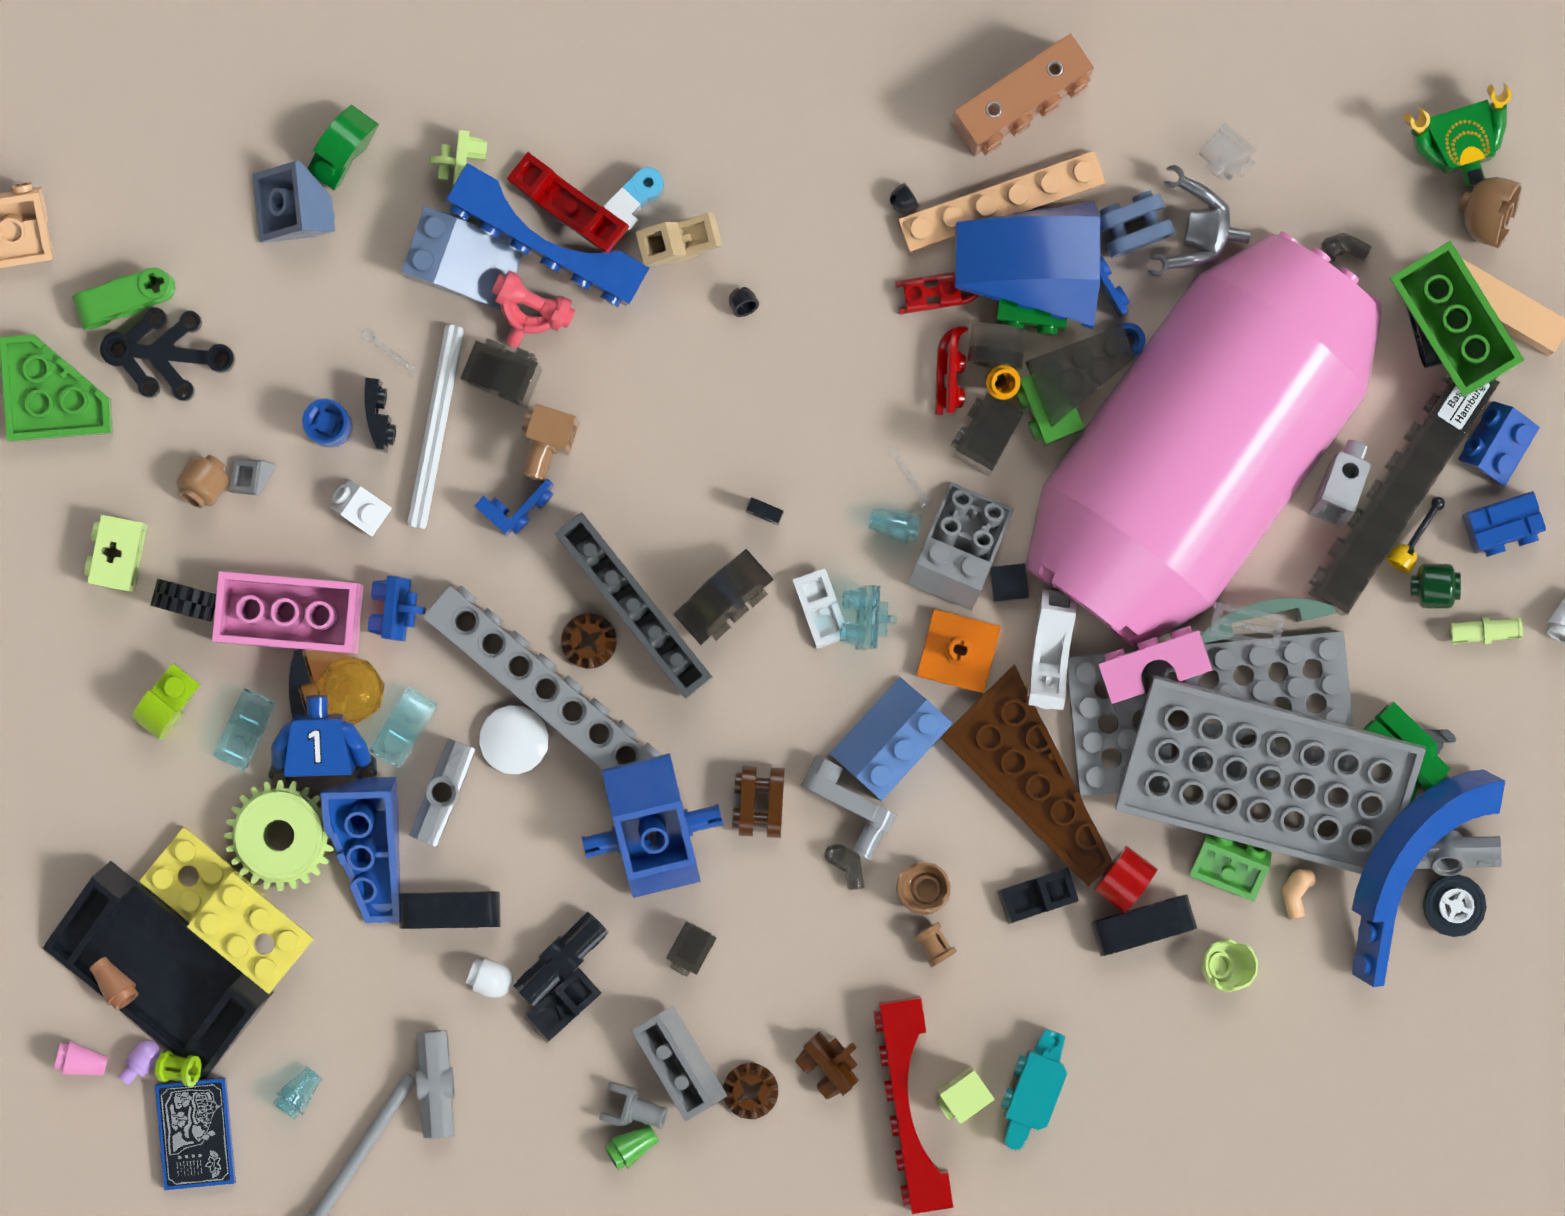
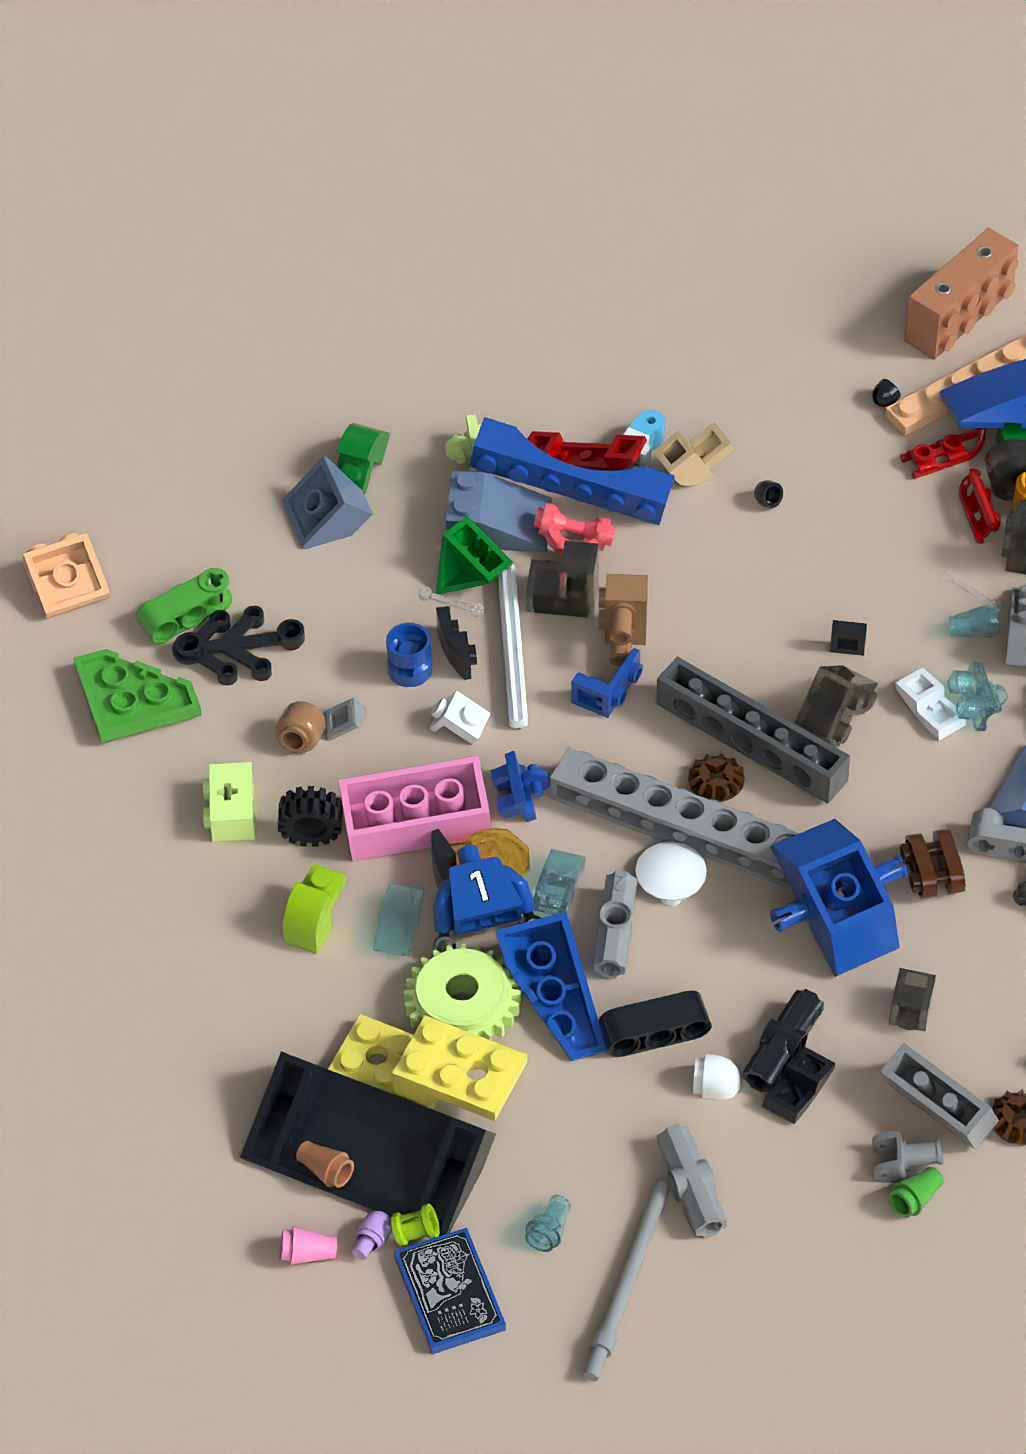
camera: 10 degrees left, 35 degrees down
(416, 319) = (468, 558): none -> green slope

